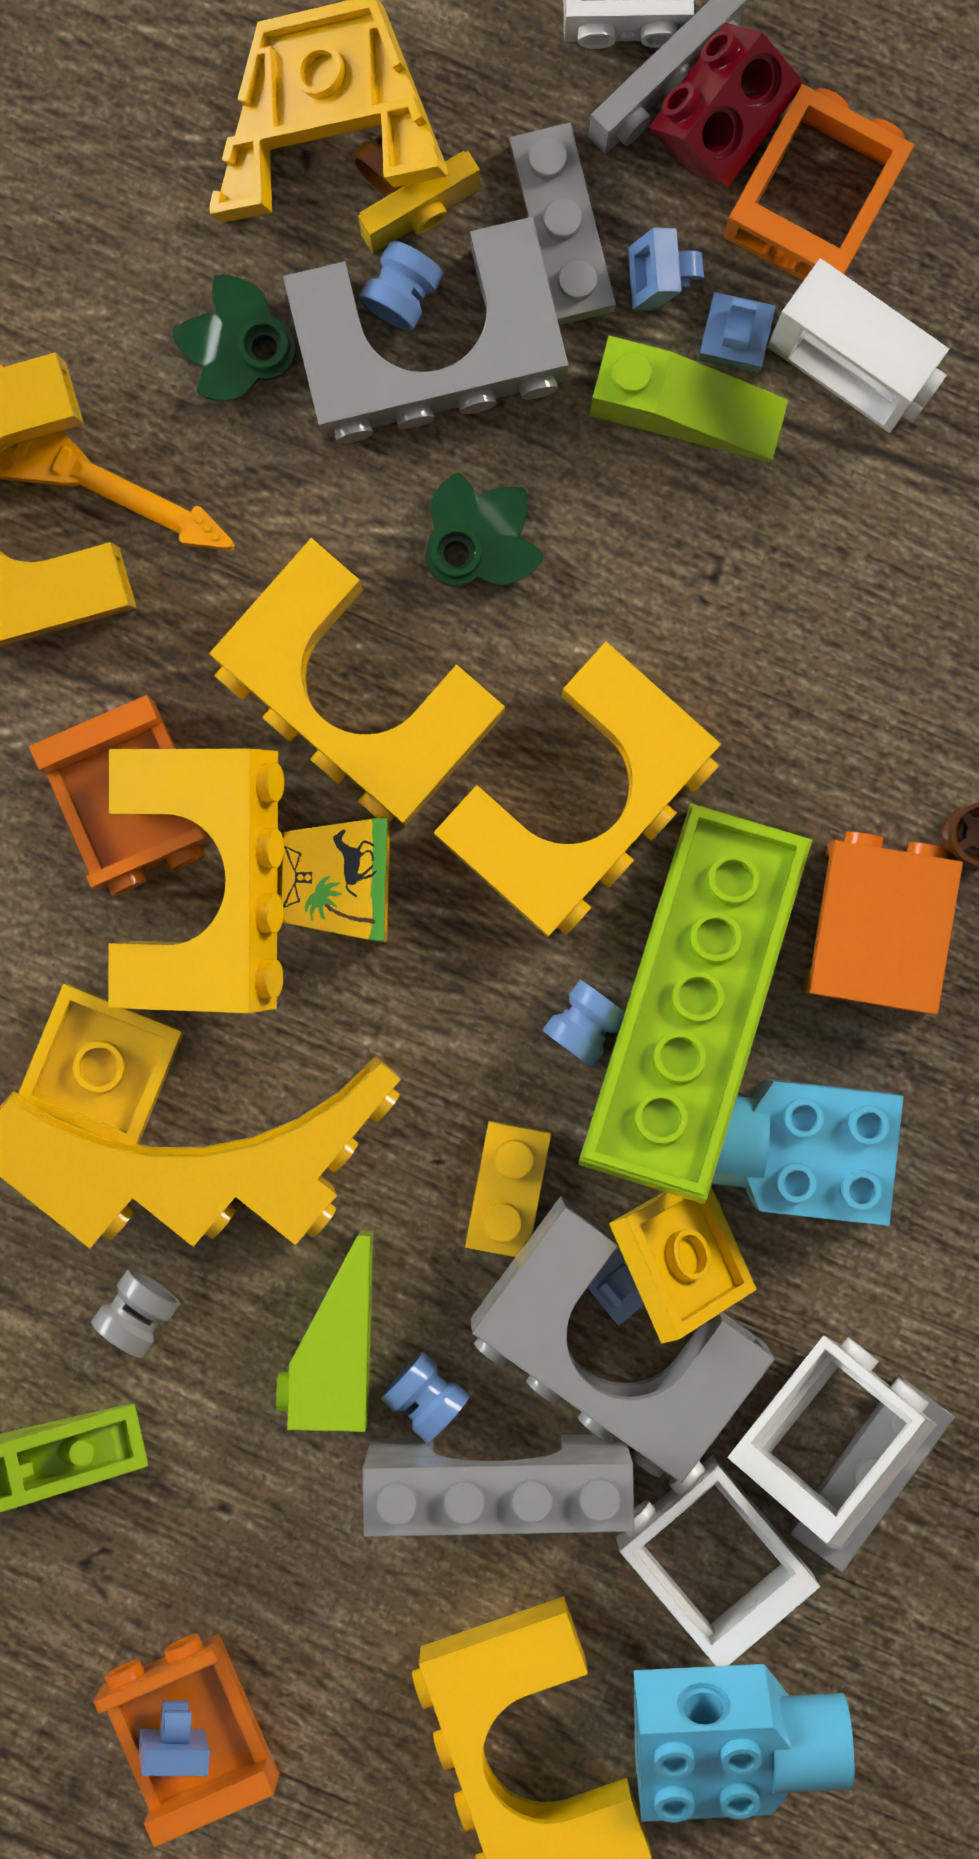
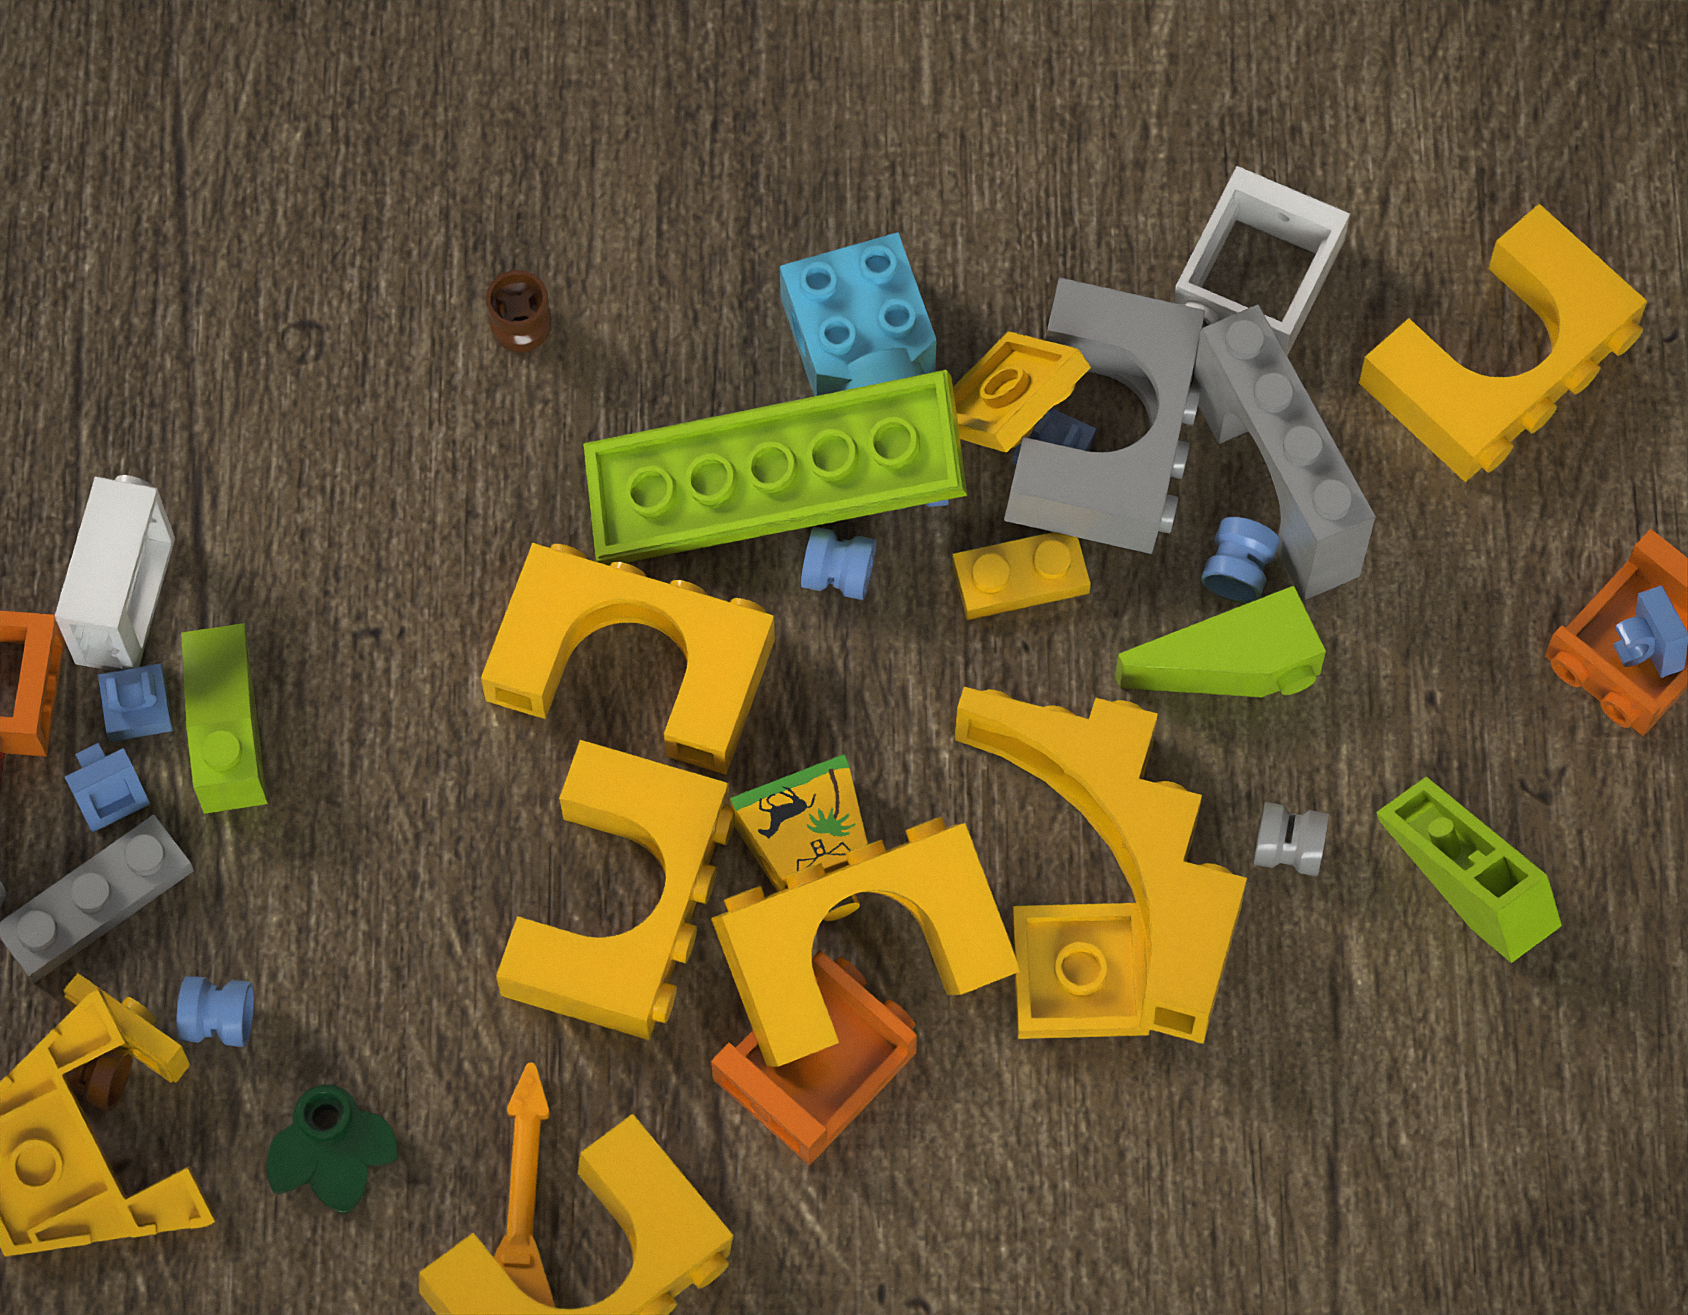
camera: 115 degrees left, 20 degrees down
(486, 528) = (418, 843): dark green plate -> none
(514, 355) = (230, 884): light grey arch -> none
(733, 1742) = (1406, 181): medium azure brick -> none
(755, 1448) = (1044, 167): white window -> none
(855, 1463) = (1122, 179): light grey plate -> none
(884, 924) = (633, 350): orange panel -> none

